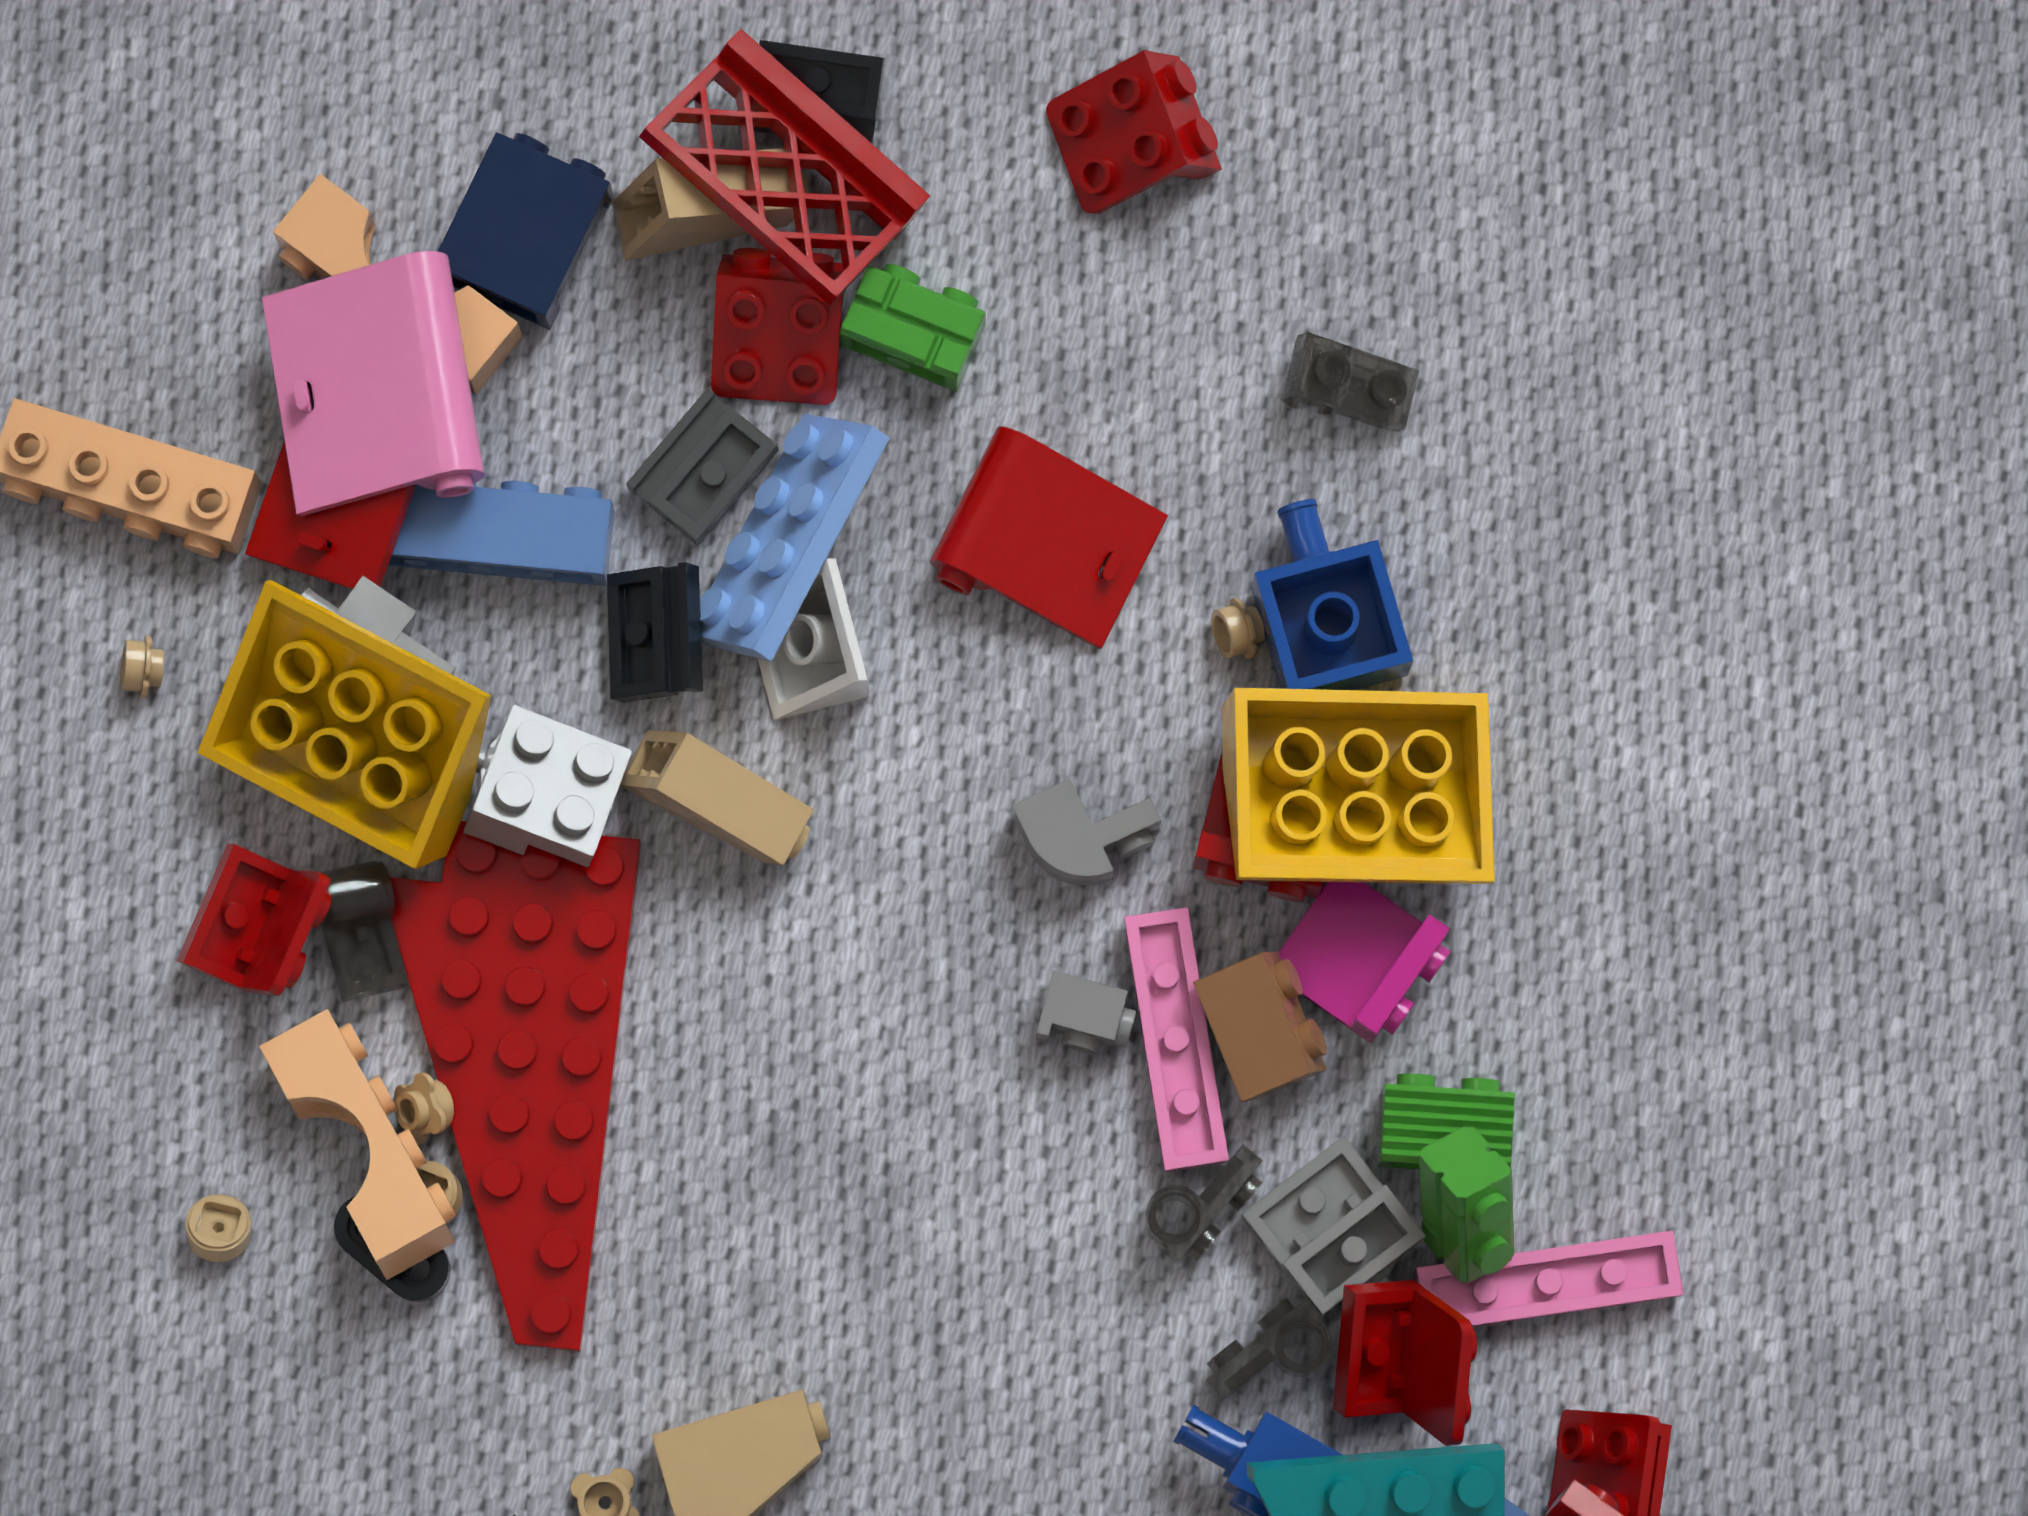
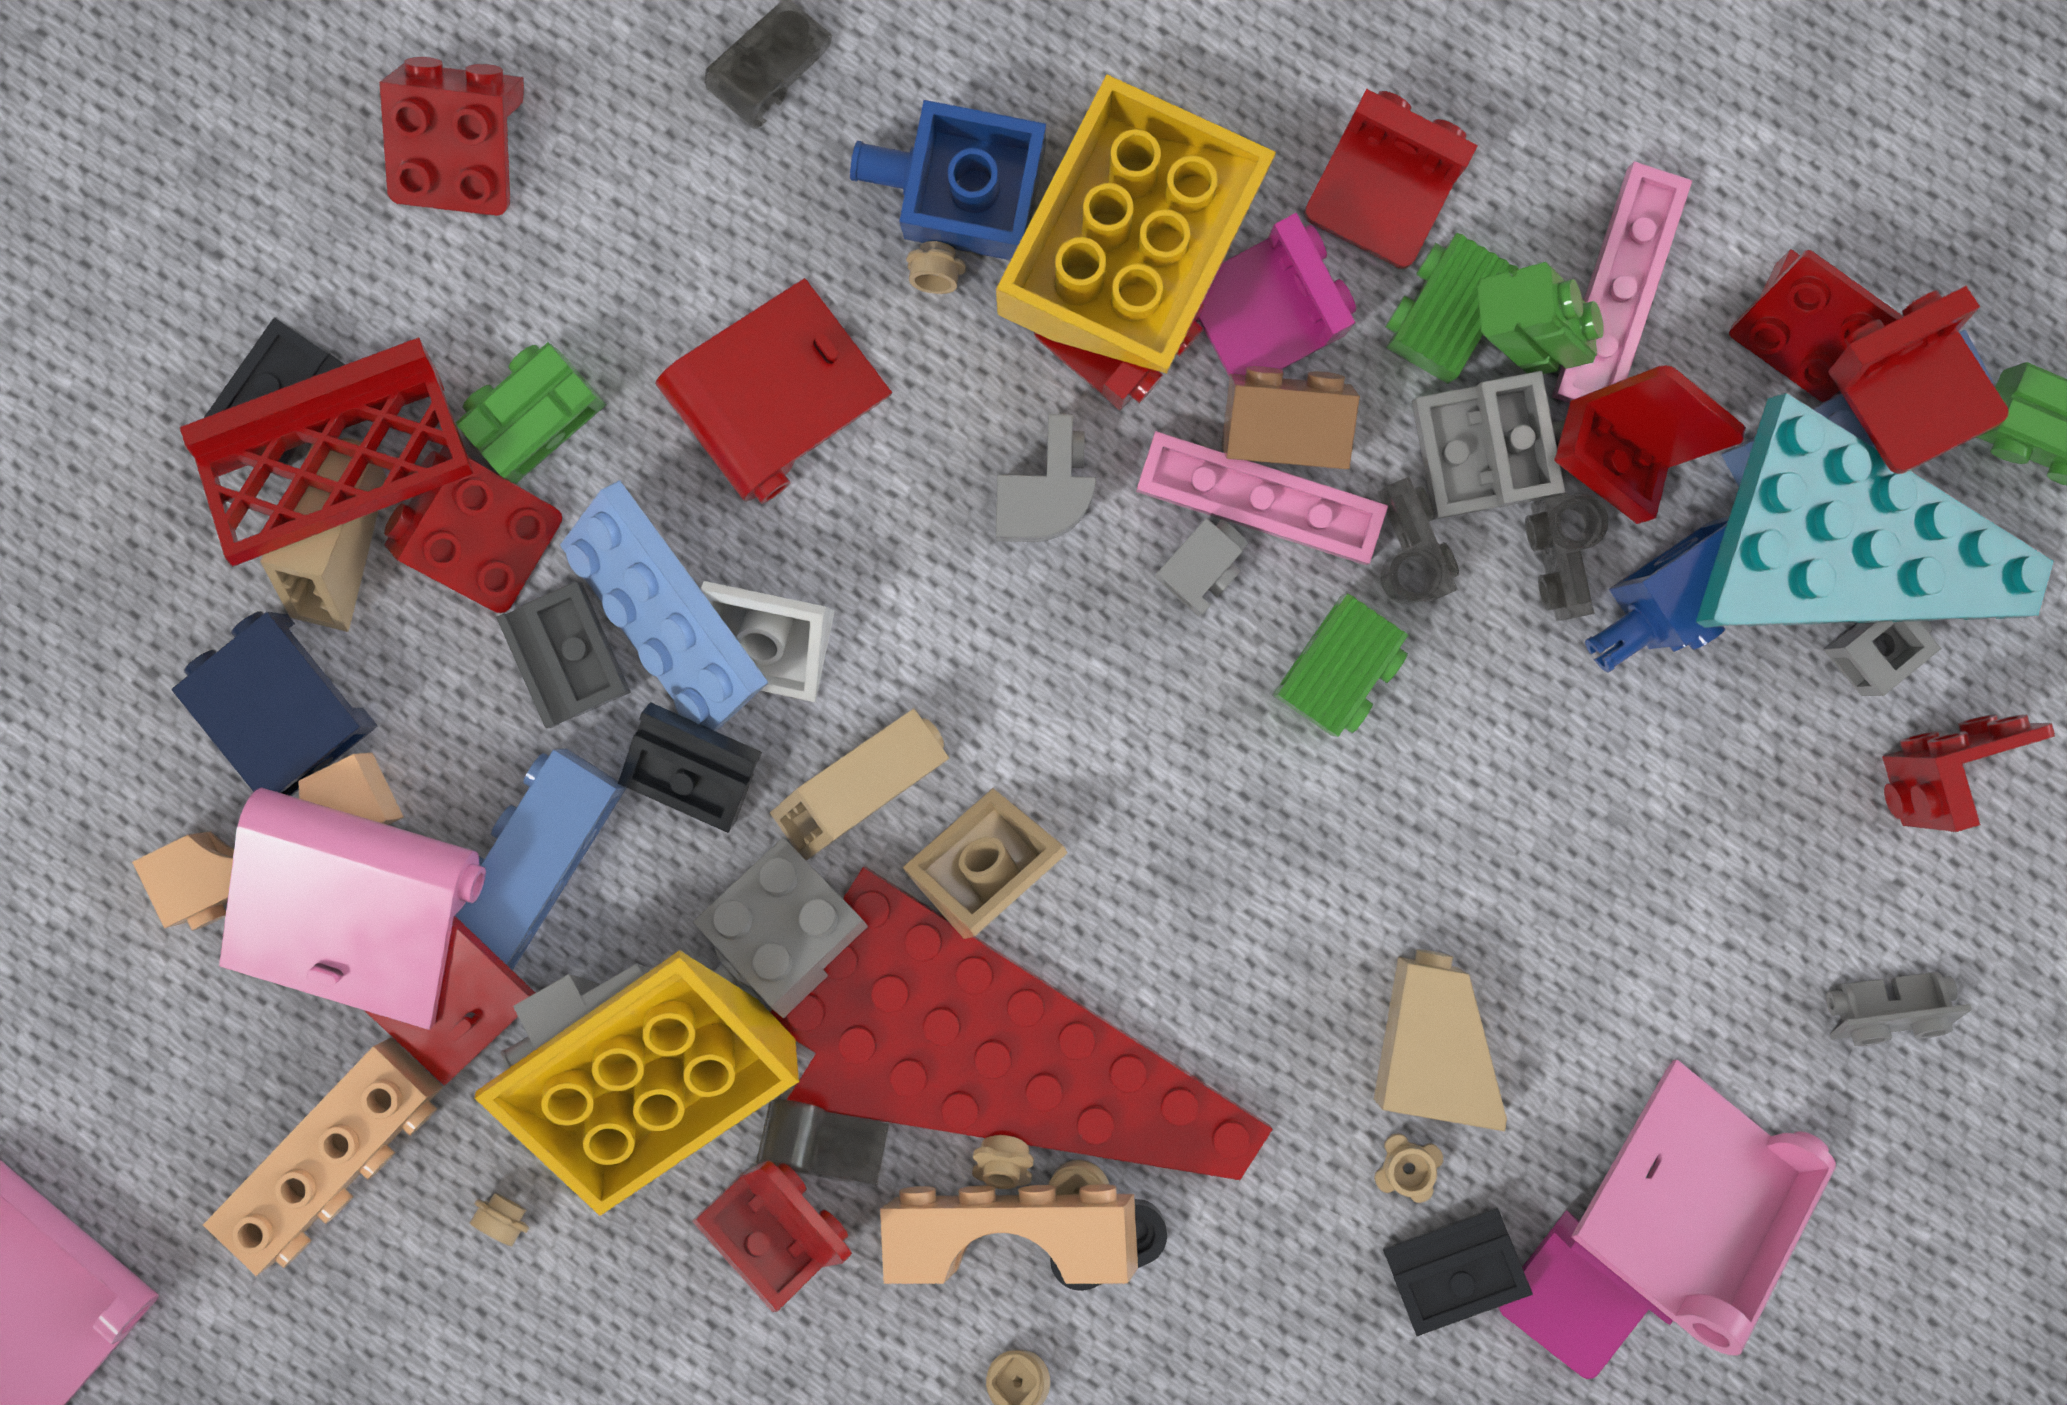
camera: 60 degrees left, 10 degrees up
(699, 948) = (983, 863): none -> tan slope
(1053, 1194) = (1342, 666): none -> bright green brick
(1534, 1008) = (1389, 178): none -> red bracket

